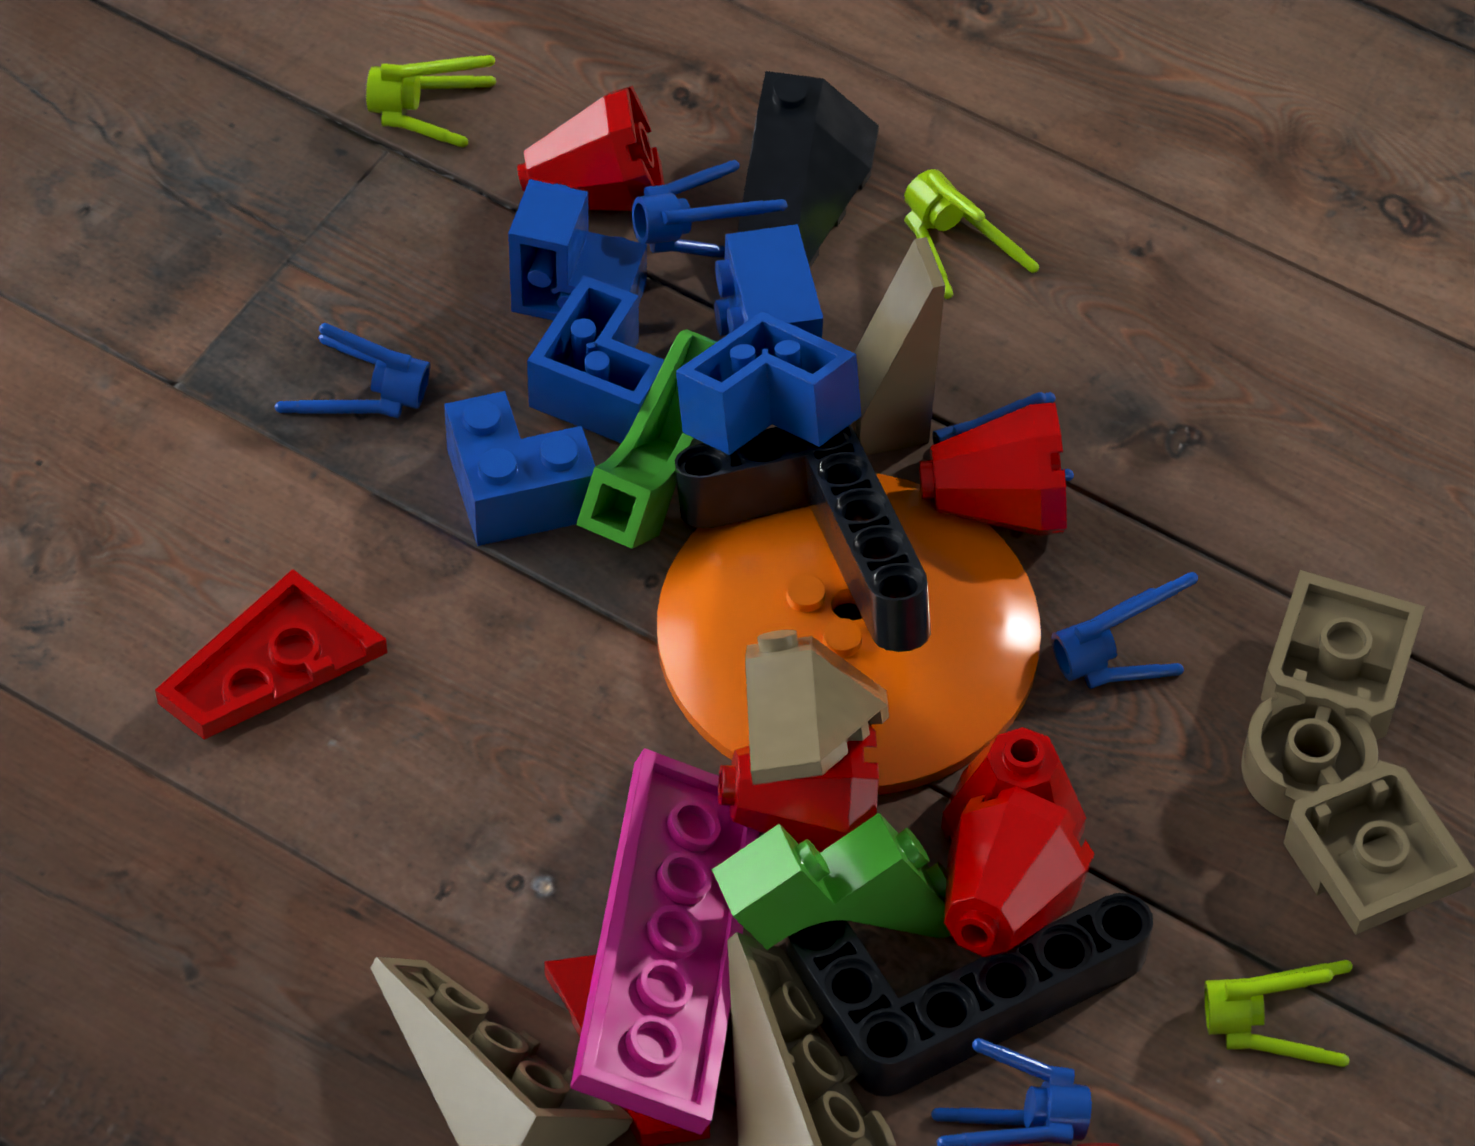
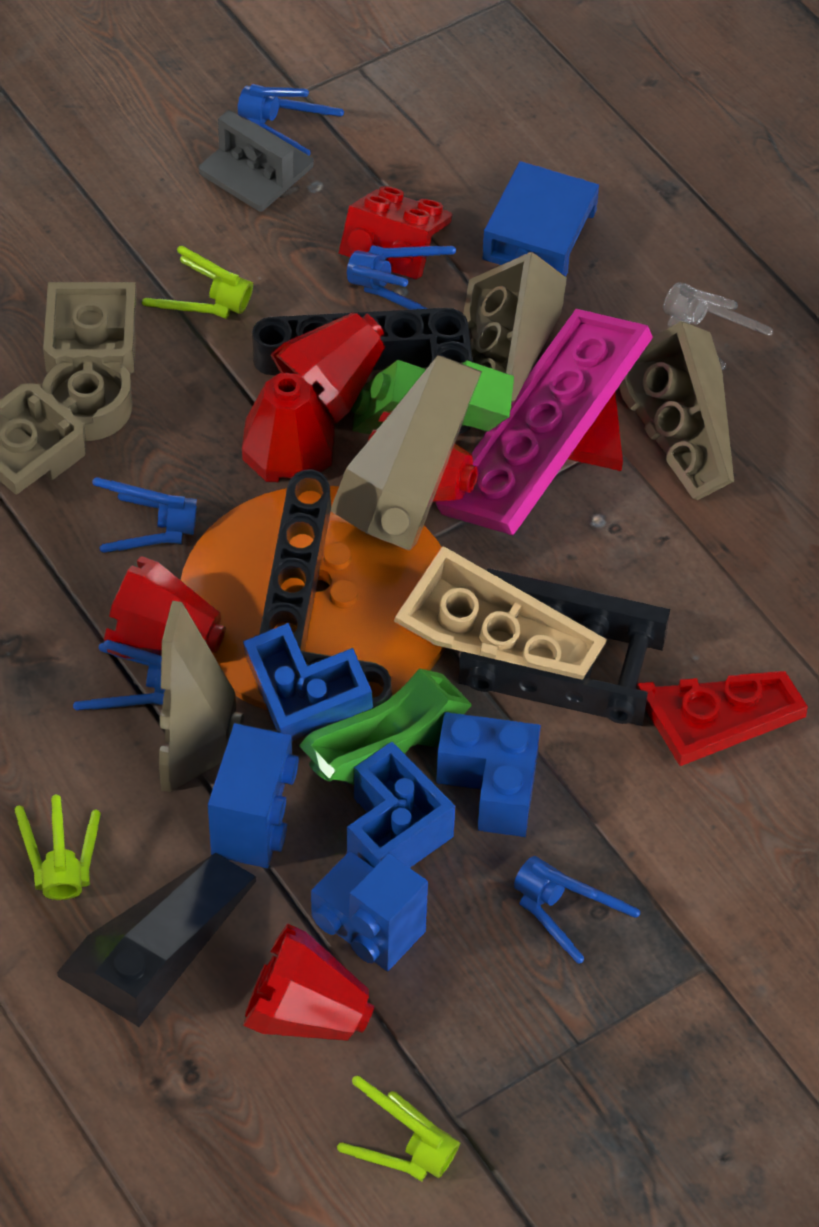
camera: 155 degrees left, 0 degrees up
(509, 710) = (606, 615): none -> black fence
(615, 605) = (485, 616): none -> tan wedge
(662, 217) = (283, 905): blue plant -> none

